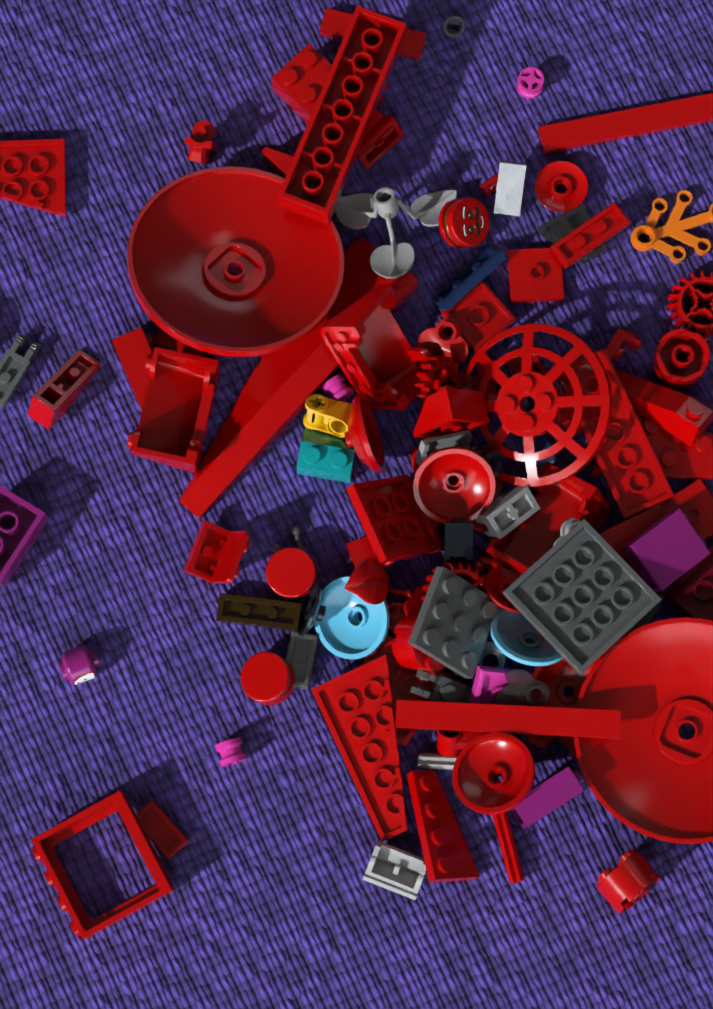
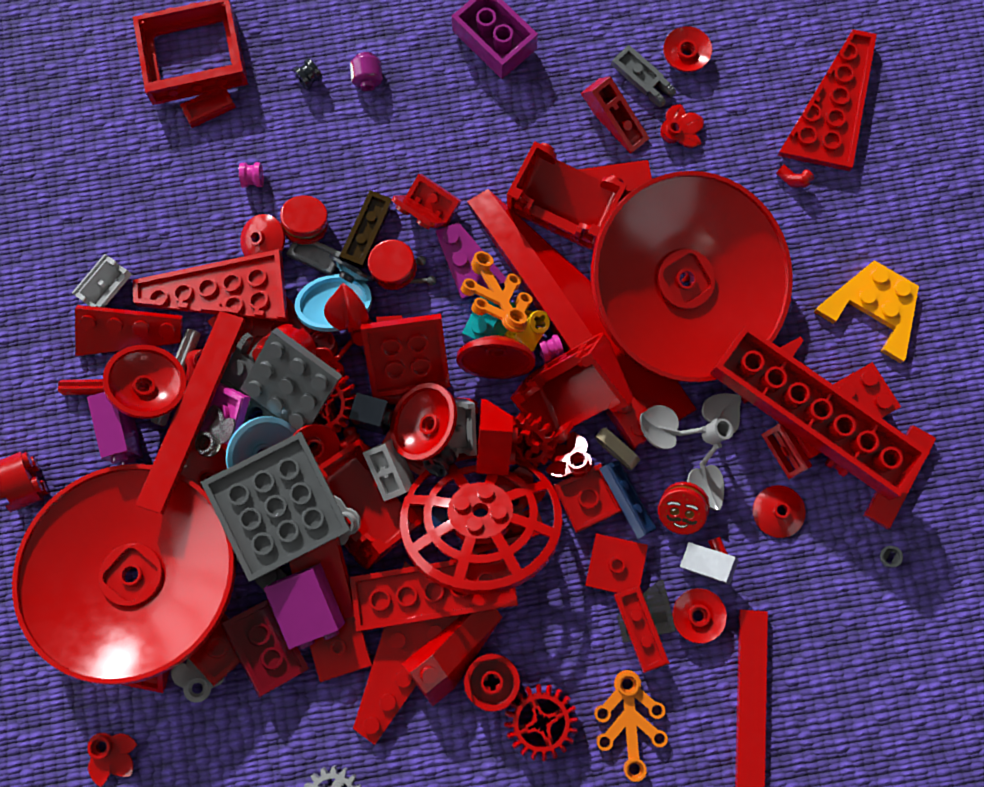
camera: 105 degrees right, 0 degrees up
(56, 316) = (681, 127): none -> red plate
(90, 194) = (795, 180): none -> red arm
(98, 727) = (307, 73): none -> black wheel
(194, 82) = (881, 296): none -> light orange wing
(201, 143) = (817, 282): red hips -> none
(267, 498) = (459, 251): none -> magenta wing
(286, 718) = (270, 232): none -> red dish
(322, 427) = (512, 318): none -> orange plant
(421, 300) = (617, 448): none -> dark tan beam
(438, 149) = (768, 518): none -> red dish
(531, 76) = (821, 618): dark pink wheel -> none
(625, 338) = (521, 620): red bracket -> none

